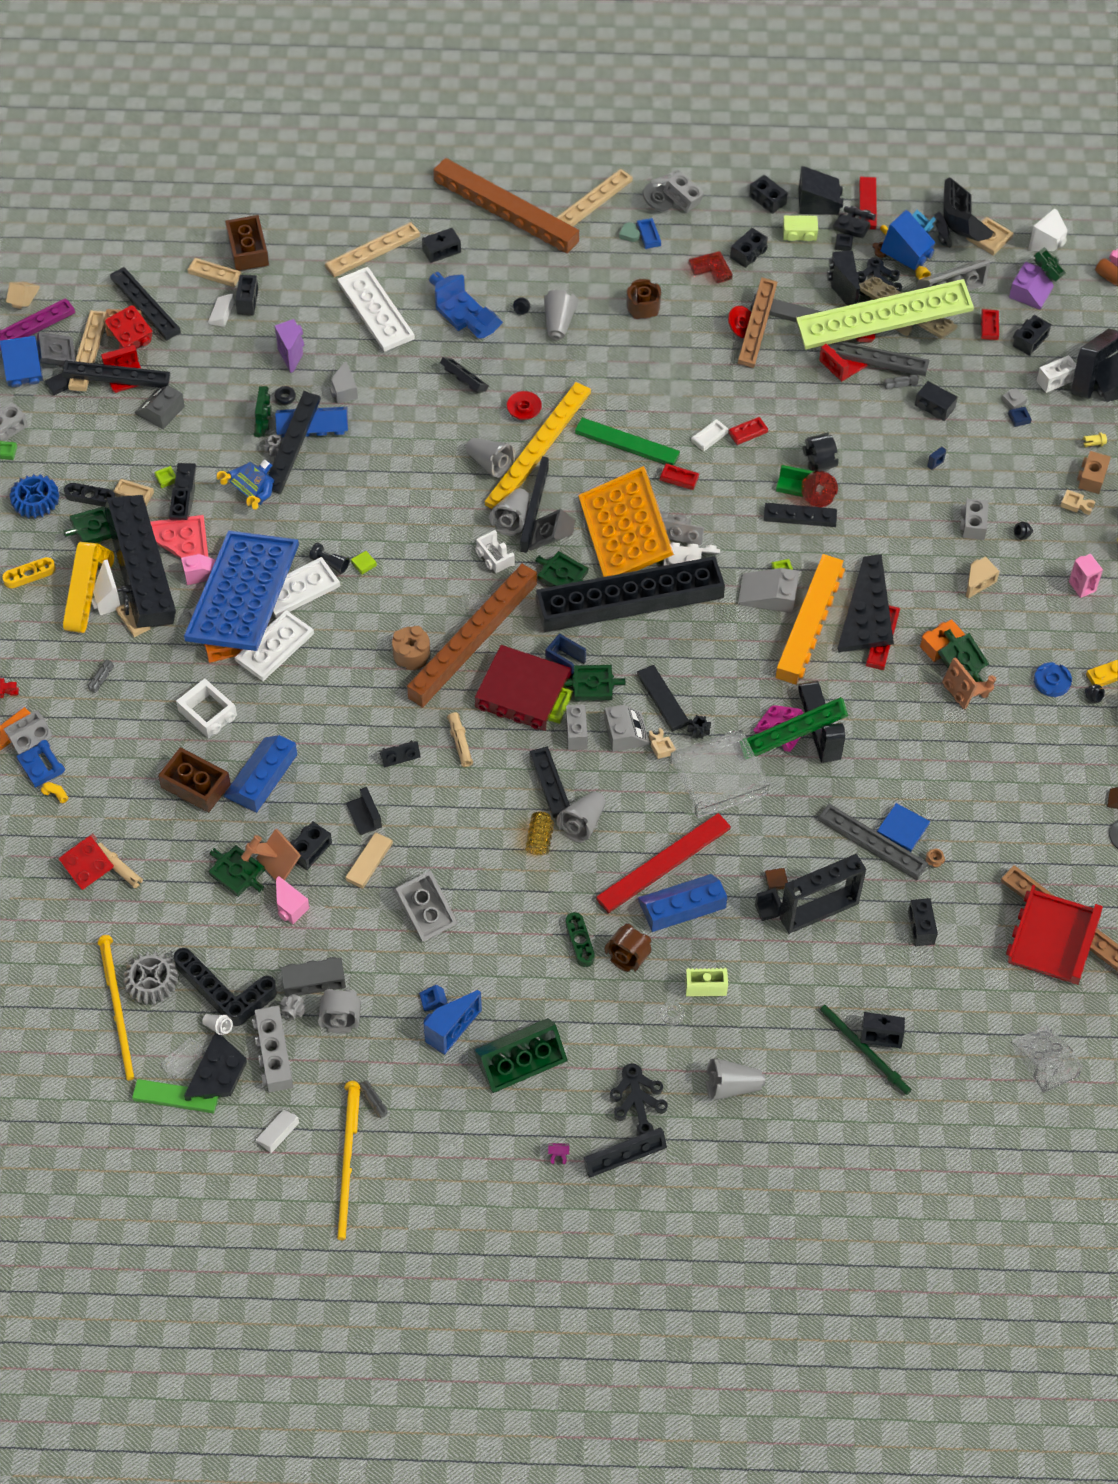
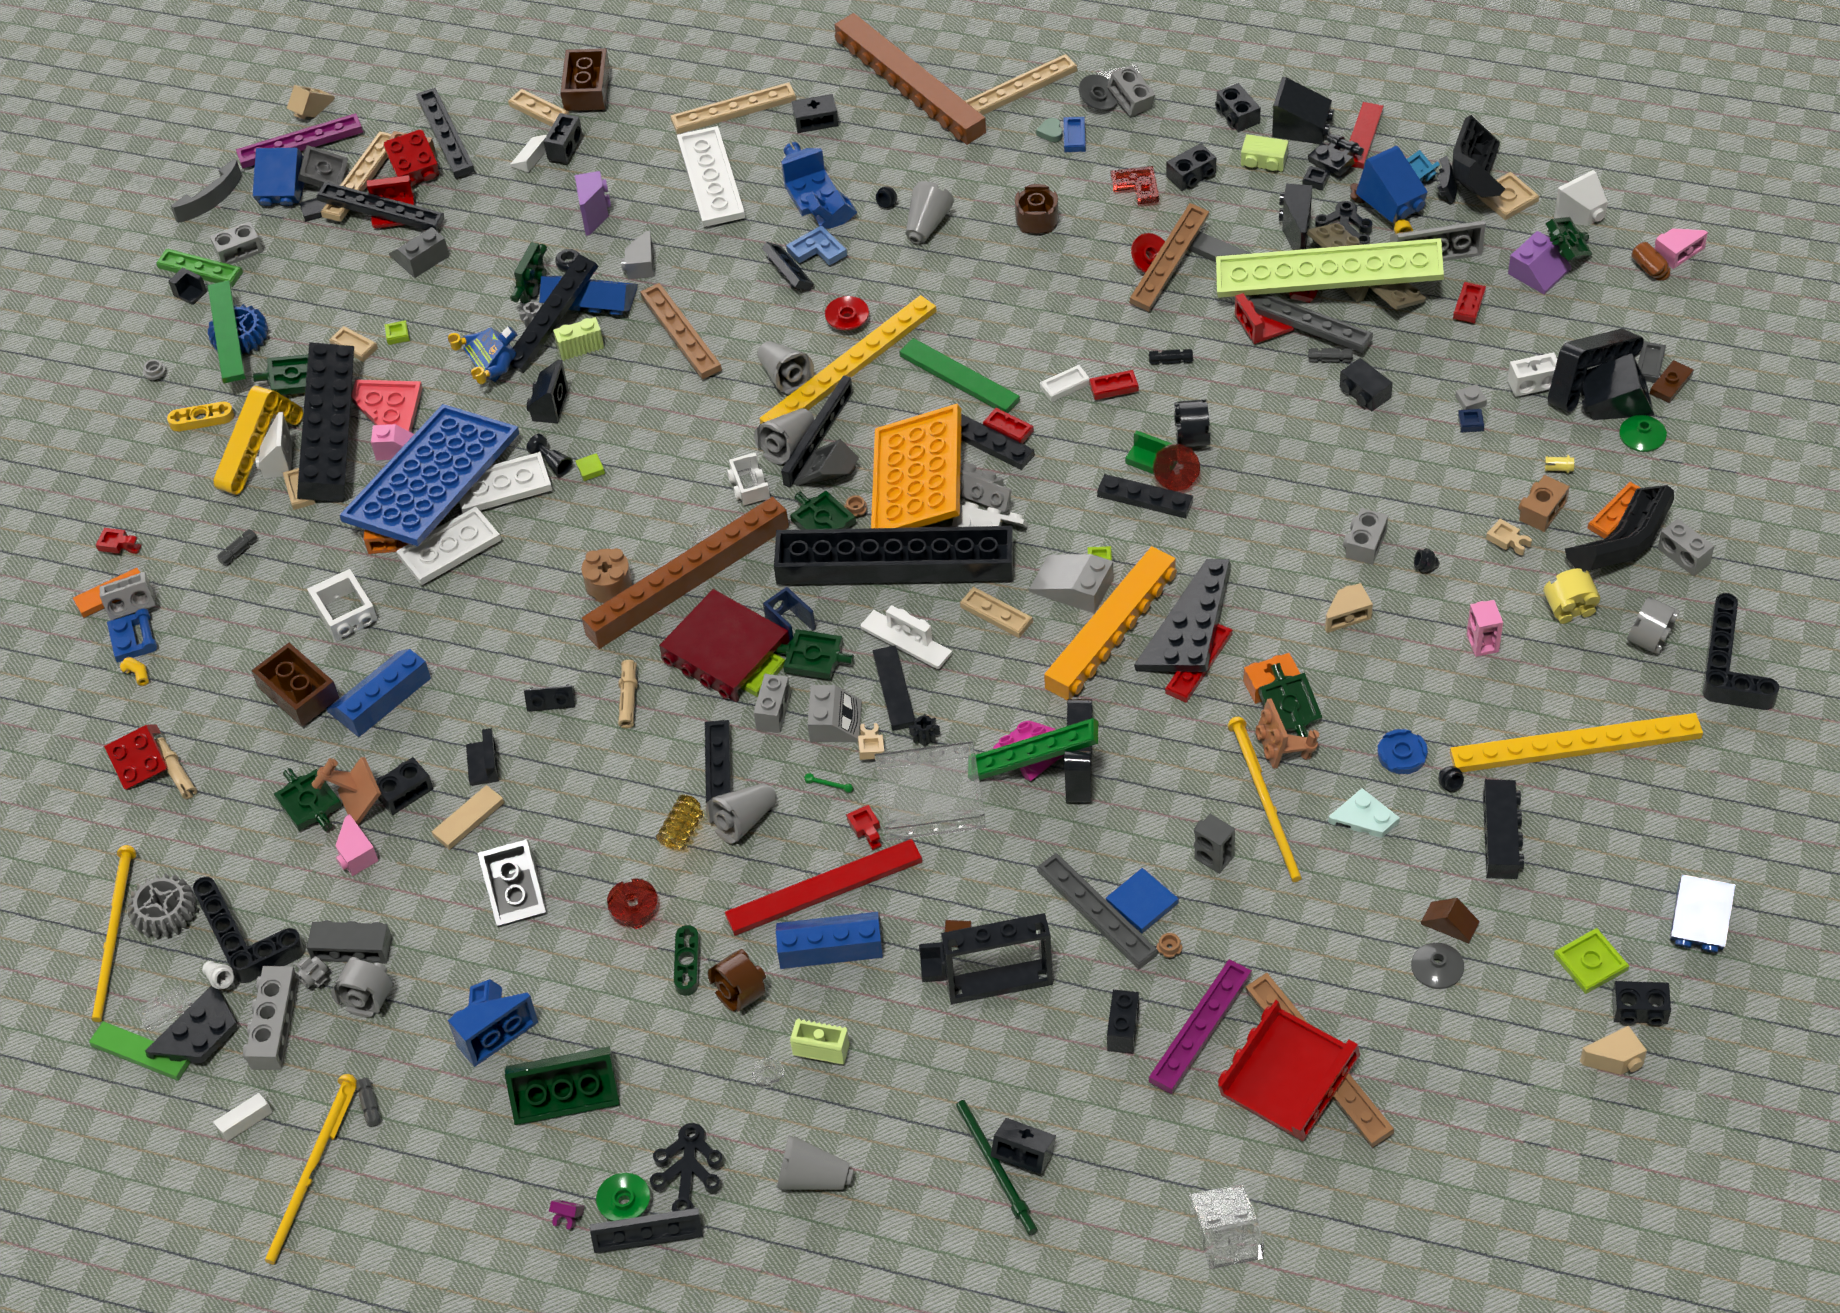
camera: 20 degrees right, 5 degrees down
(29, 499) = (226, 332): none -> green tile
(83, 490) = (296, 332): black beam -> none
(124, 590) = (295, 452): black piece -> none
(183, 492) = (408, 353): black slope -> none
(311, 508) = (548, 394): none -> black slope
(318, 459) = (578, 338): none -> yellowish green brick
(397, 440) = (681, 331): none -> medium nougat plate
(479, 351) = (817, 242): none -> medium blue plate
(523, 913) = (636, 915): none -> clear red plate
(584, 555) = (856, 505): none -> medium nougat plate
(602, 1123) = (623, 1187): none -> green dish
(622, 780) = (809, 779): none -> green hinge
(661, 654) = (907, 634): none -> white bracket
(677, 492) = (995, 443): none -> black plate
(679, 807) = (865, 823): none -> red plate
(719, 625) = (996, 612): none -> tan tile
(782, 401) = (1170, 356): none -> black axle
(928, 680) = (1238, 725): none -> yellow bar
(936, 458) = (1342, 454): dark blue tile -> none
(945, 774) = (1214, 843): none -> dark grey brick
(978, 914) = (1200, 1026): none -> magenta plate
(1031, 334) = (1519, 322): black brick -> none
(1042, 732) = (1365, 815): none -> light aqua wing

